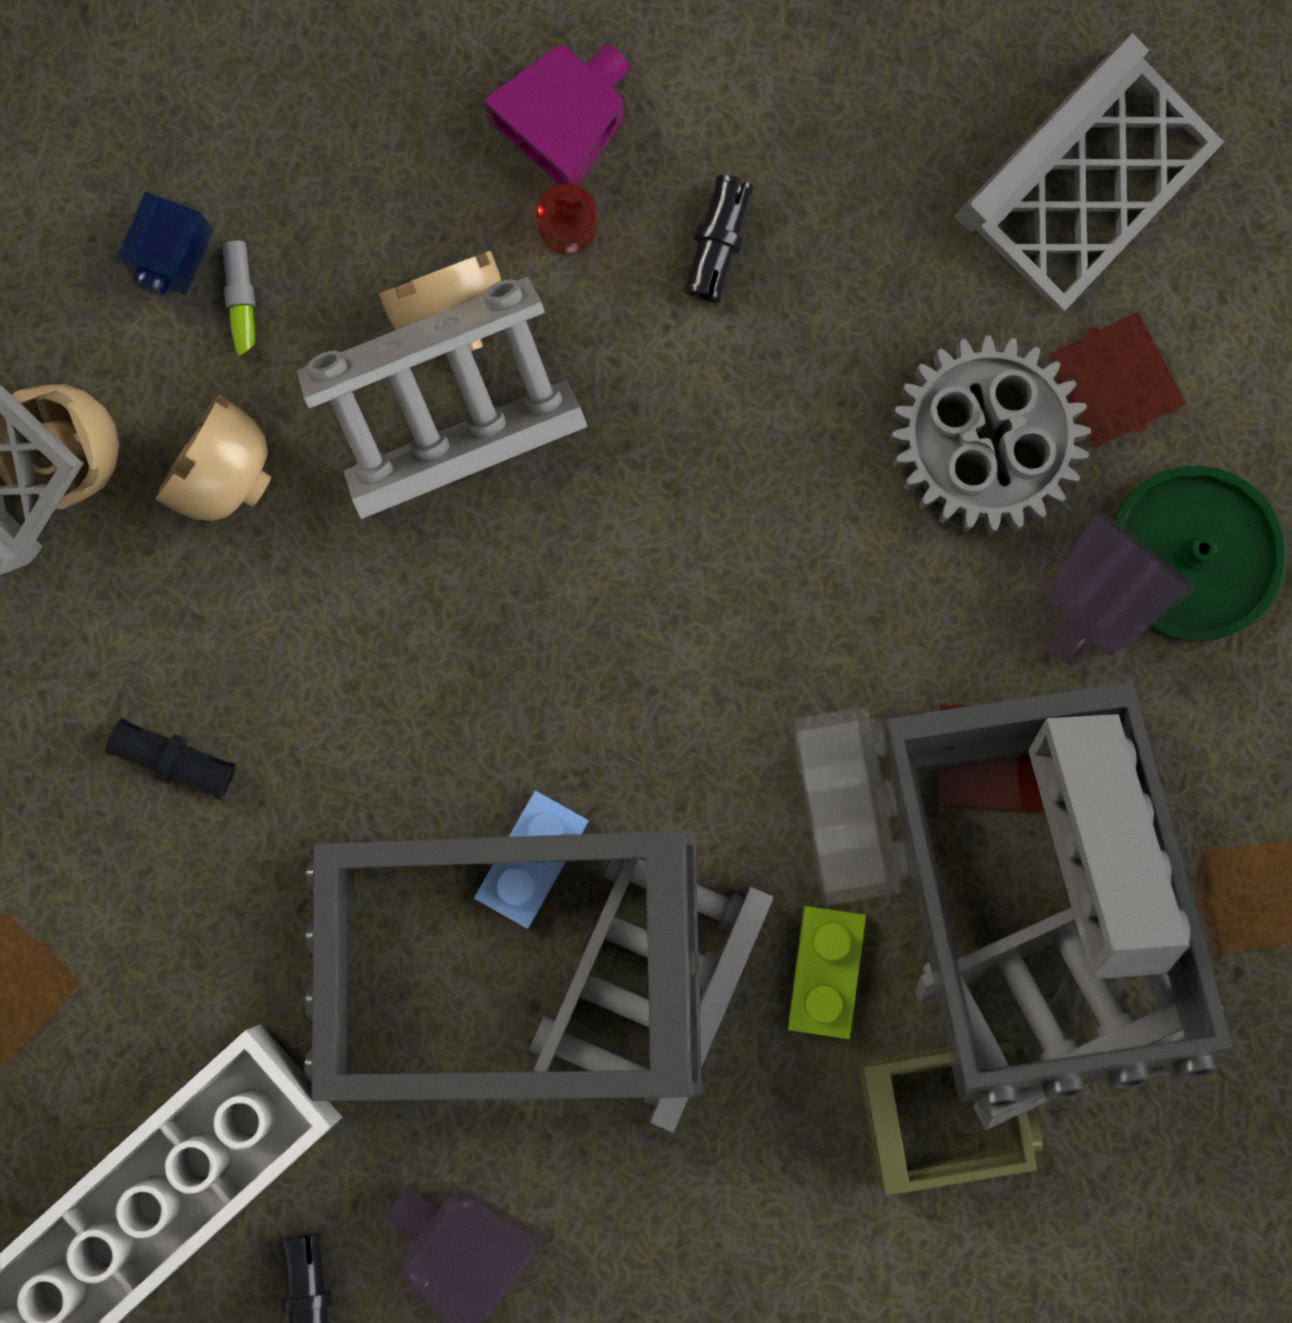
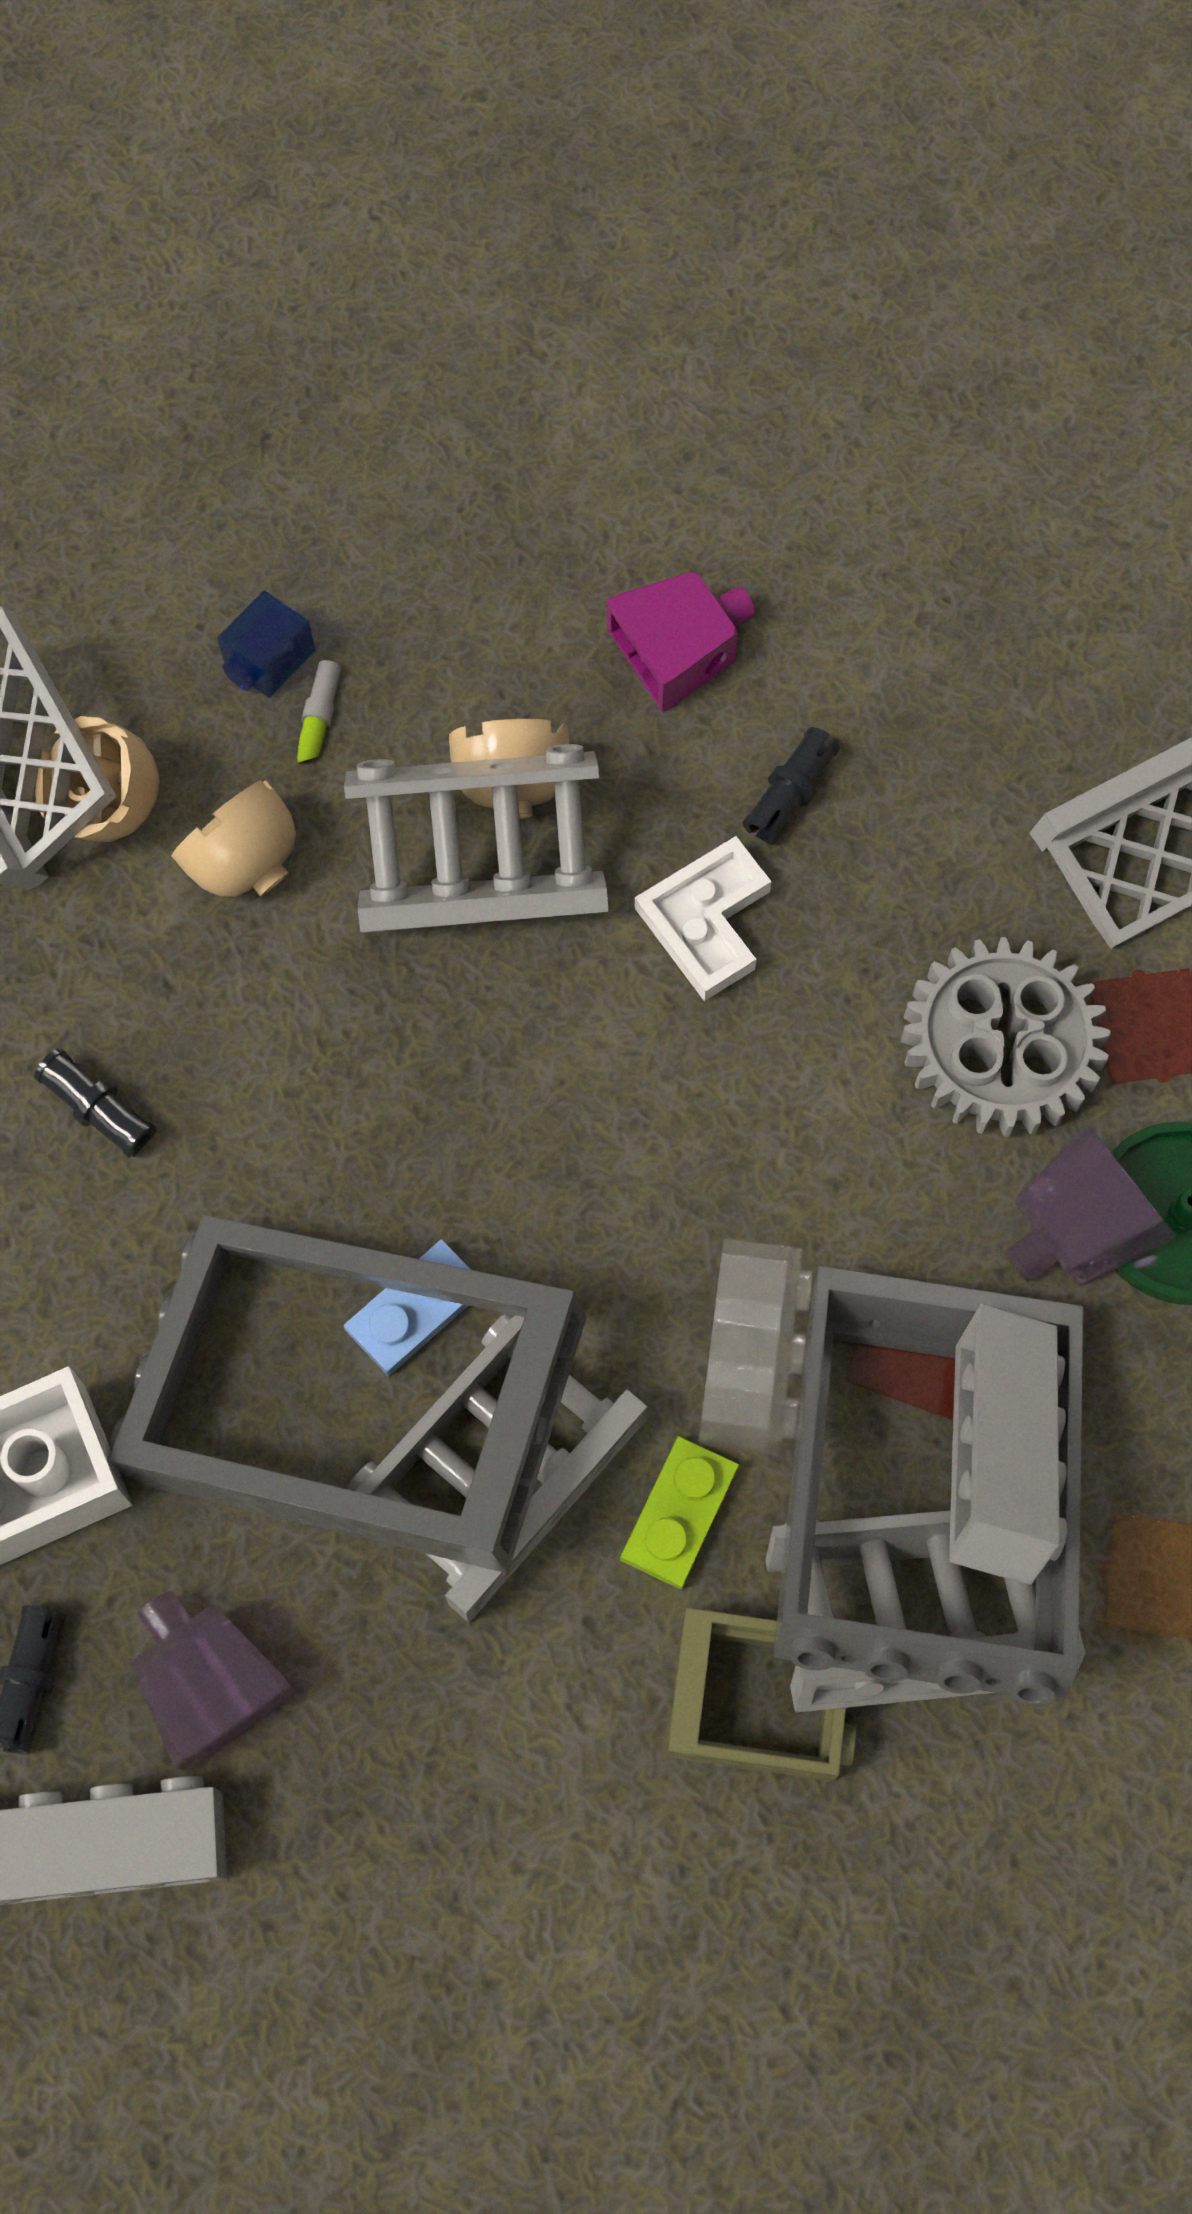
camera: 15 degrees right, 15 degrees down
(570, 232) = (640, 738): clear red wheel -> none
(662, 401) = (691, 914): none -> white plate

